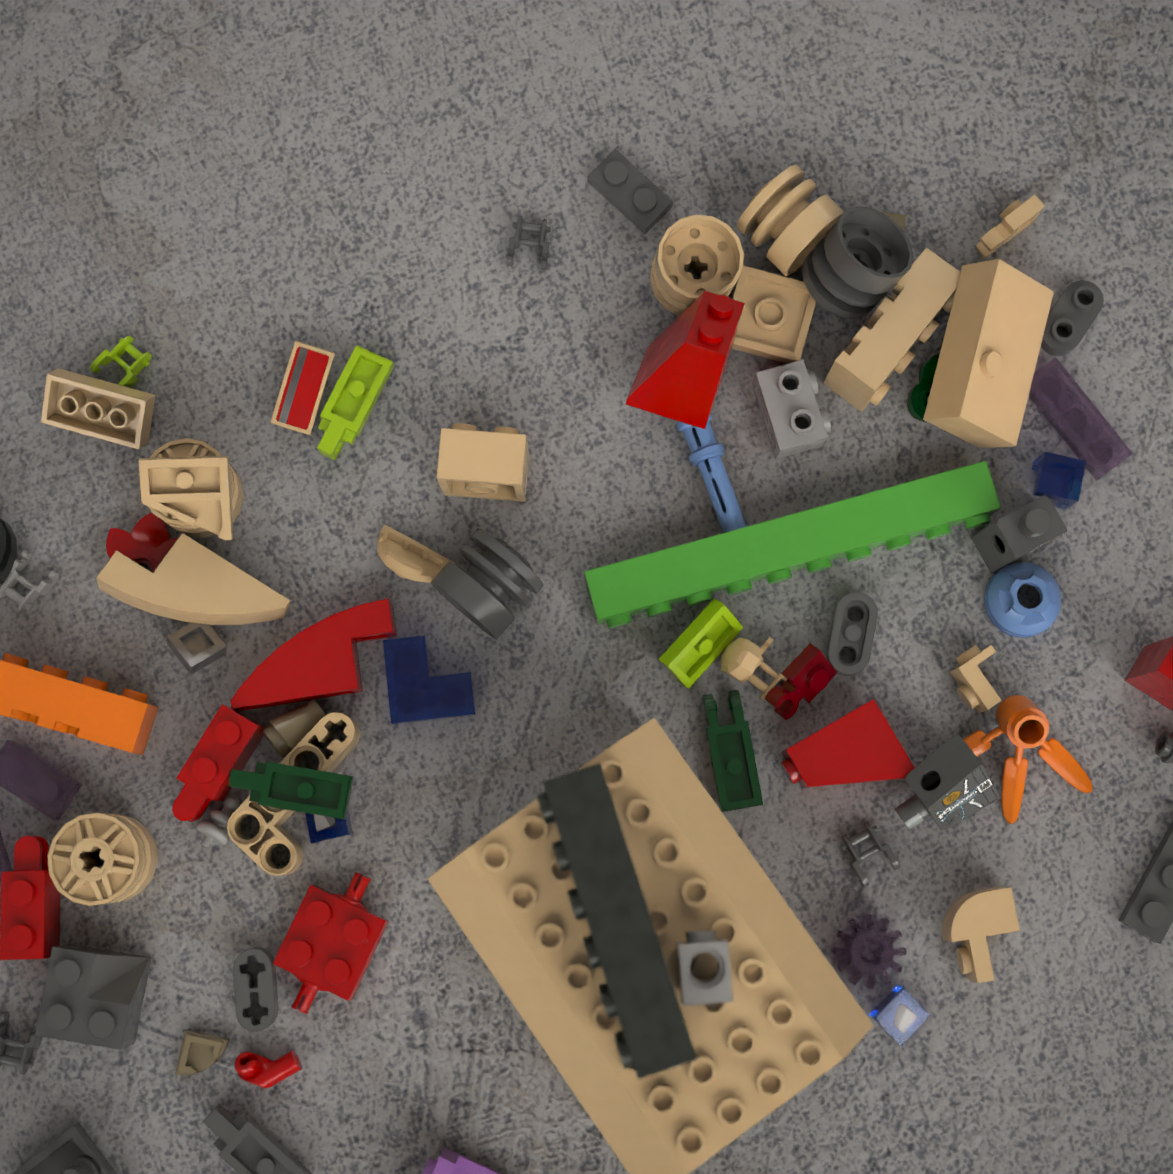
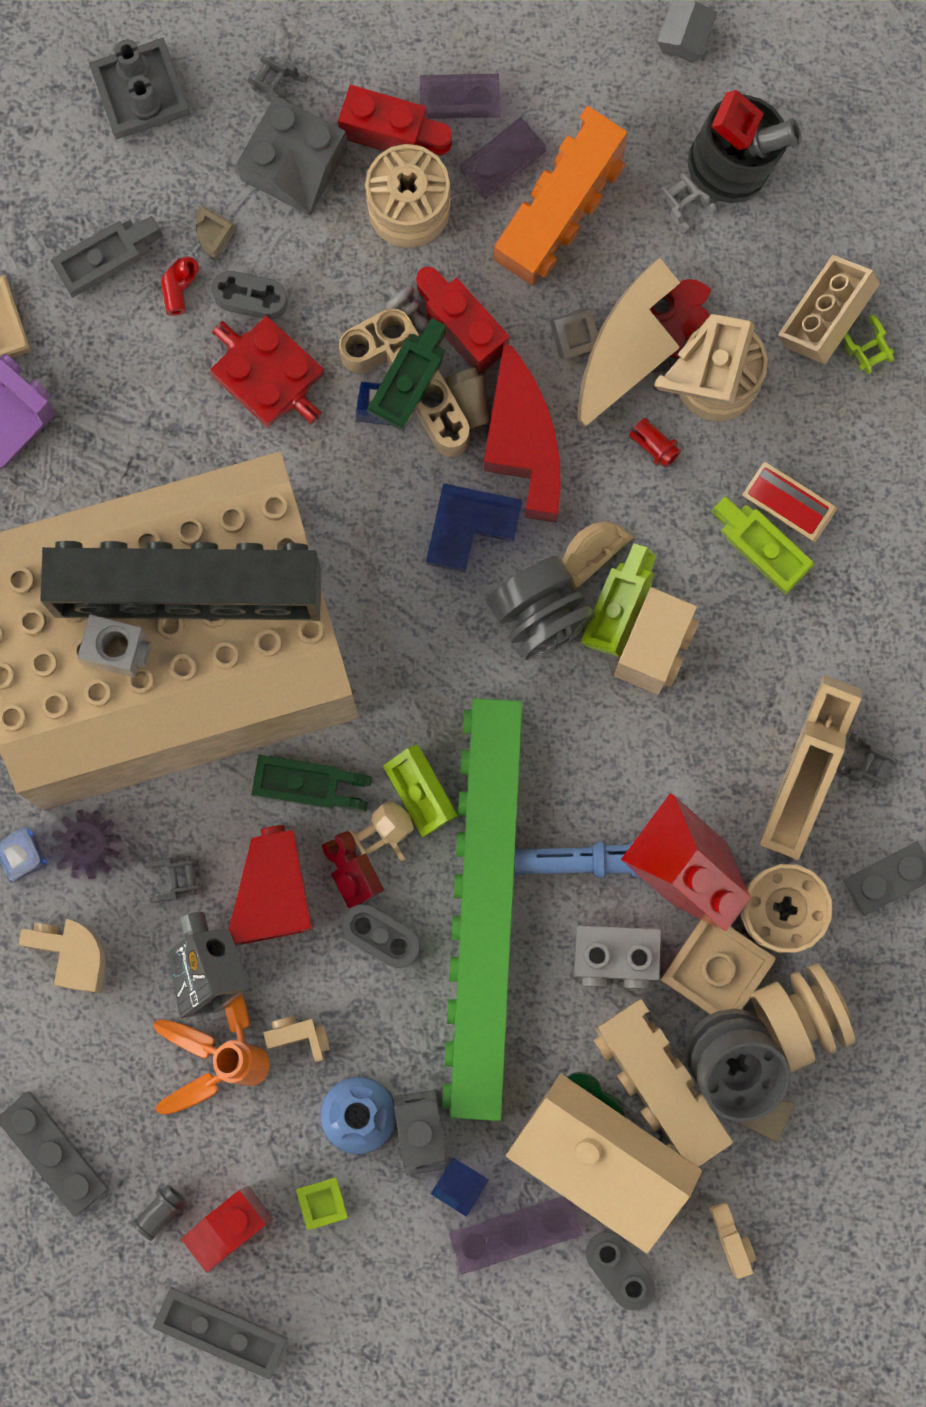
camera: 110 degrees right, 0 degrees up
(284, 532) = (655, 443): none -> red pin
(453, 513) = (620, 602): none -> lime hinge
(552, 287) = (811, 767): none -> tan slope
(1117, 603) = (322, 1203): none -> lime plate

